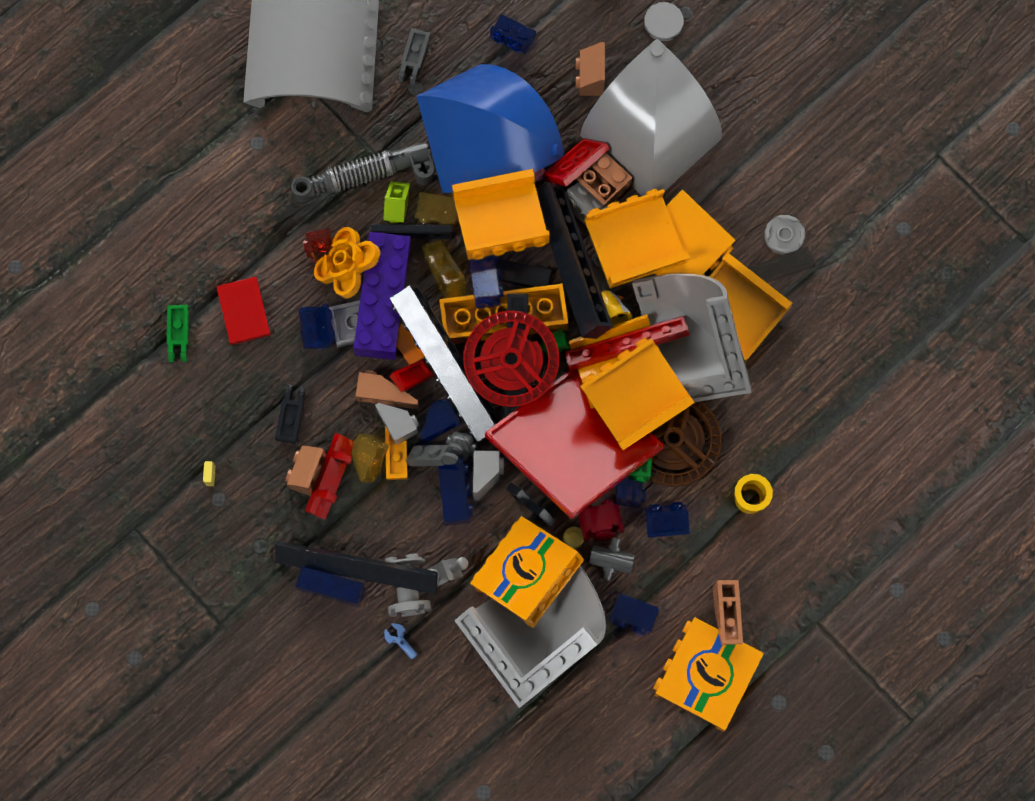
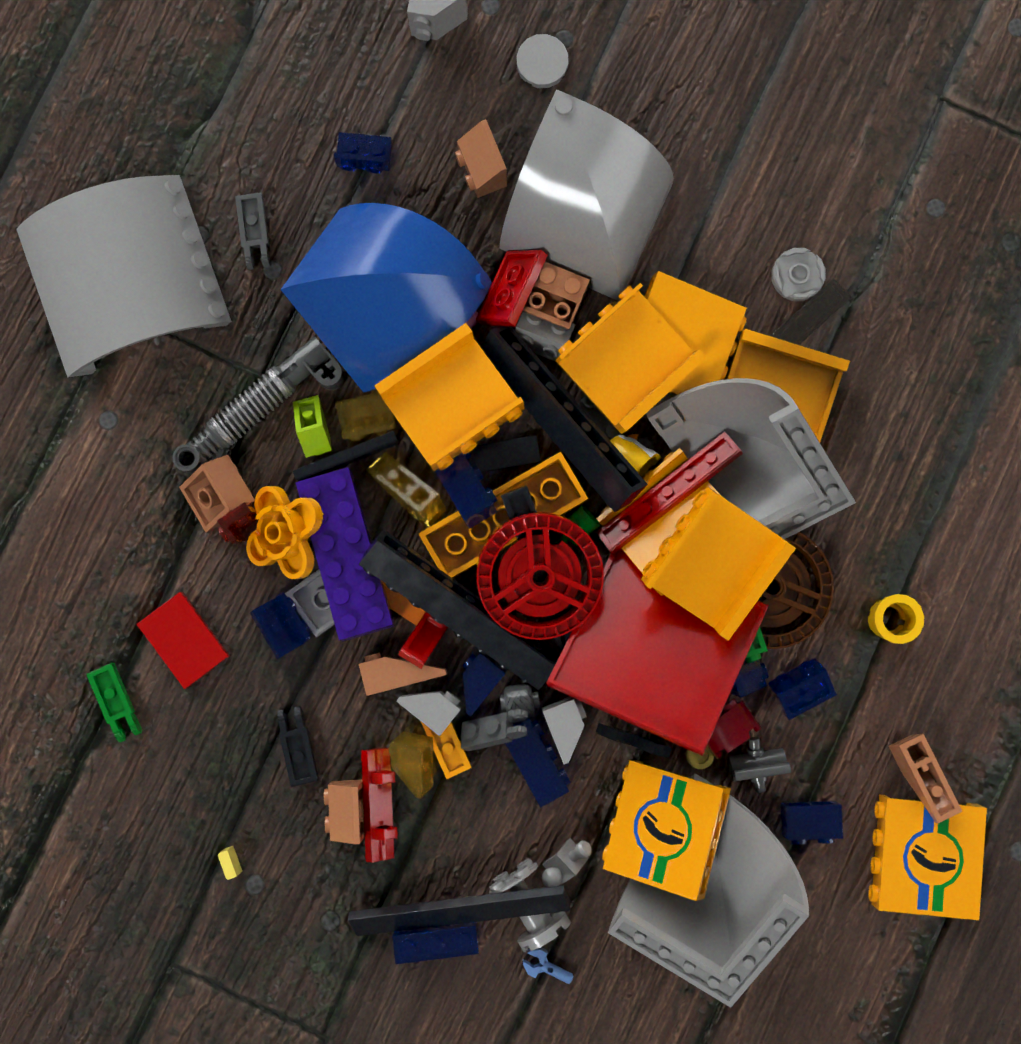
camera: 20 degrees left, 10 degrees up
(310, 215) = (215, 491): none -> nougat slope

